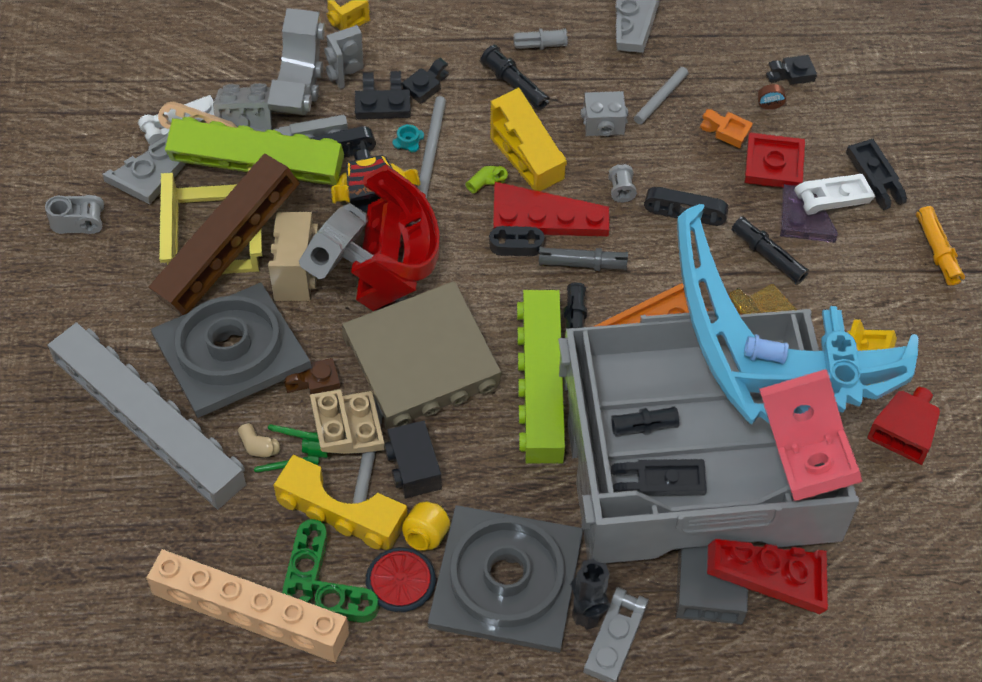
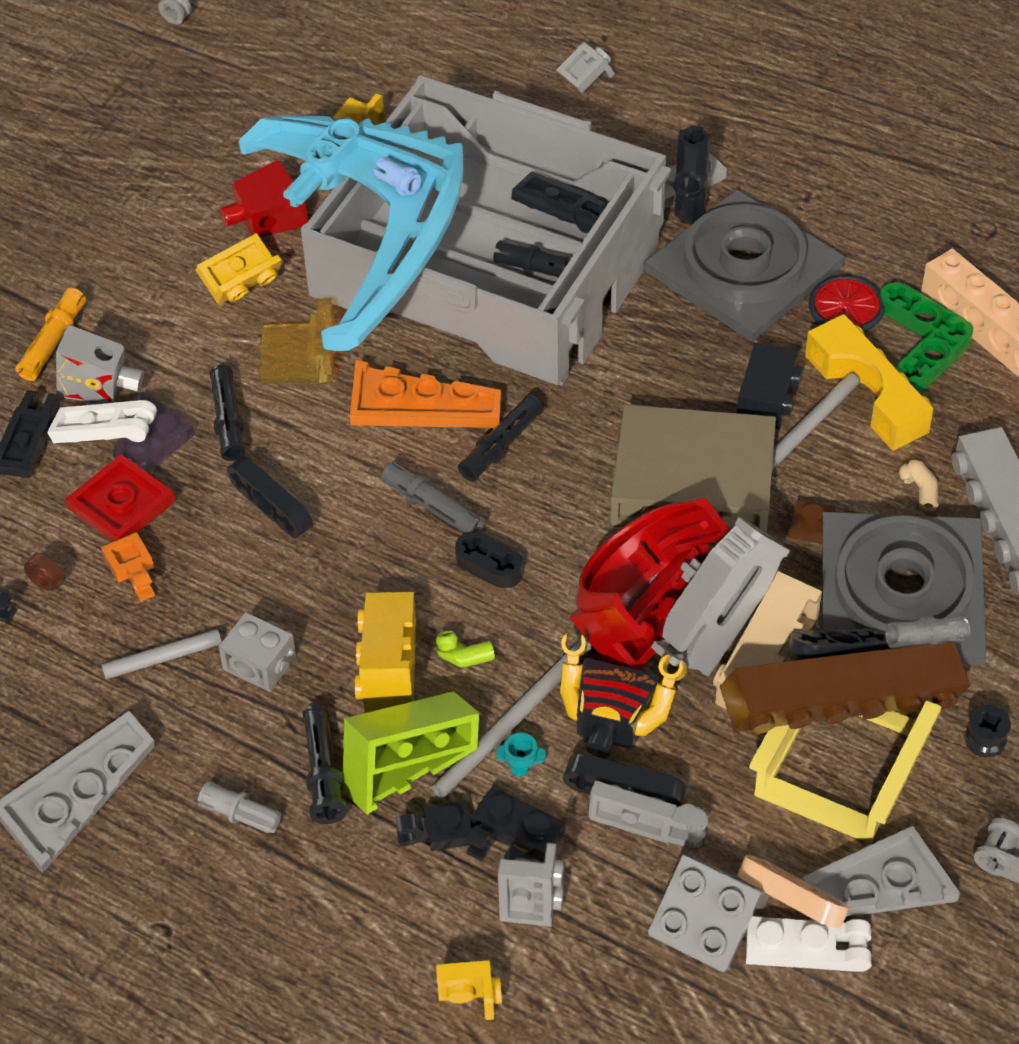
camera: 145 degrees left, 5 degrees down
(126, 288) = (982, 740): none -> black wheel
(189, 294) = (927, 631): none -> clear pin
(241, 147) = (746, 790): lime brick -> none
(248, 235) = (835, 642): none -> black beam
(299, 64) = (623, 893): light grey brick -> none
(310, 446) = (865, 448): green plant -> none
(347, 422) = (818, 437): tan slope -> none
(425, 526) = (792, 322): yellow head -> none
(471, 96) = (403, 743): none -> lime wedge
(541, 384) = (575, 403): lime brick -> none
(548, 212) = (442, 584): red wing -> none
(622, 183) = (315, 558): light grey bush -> none
(810, 436) = (413, 107): coral bracket -> none
(878, 220) = (92, 368): none -> light grey torso
(923, 557) = (360, 111): none -> yellow bracket

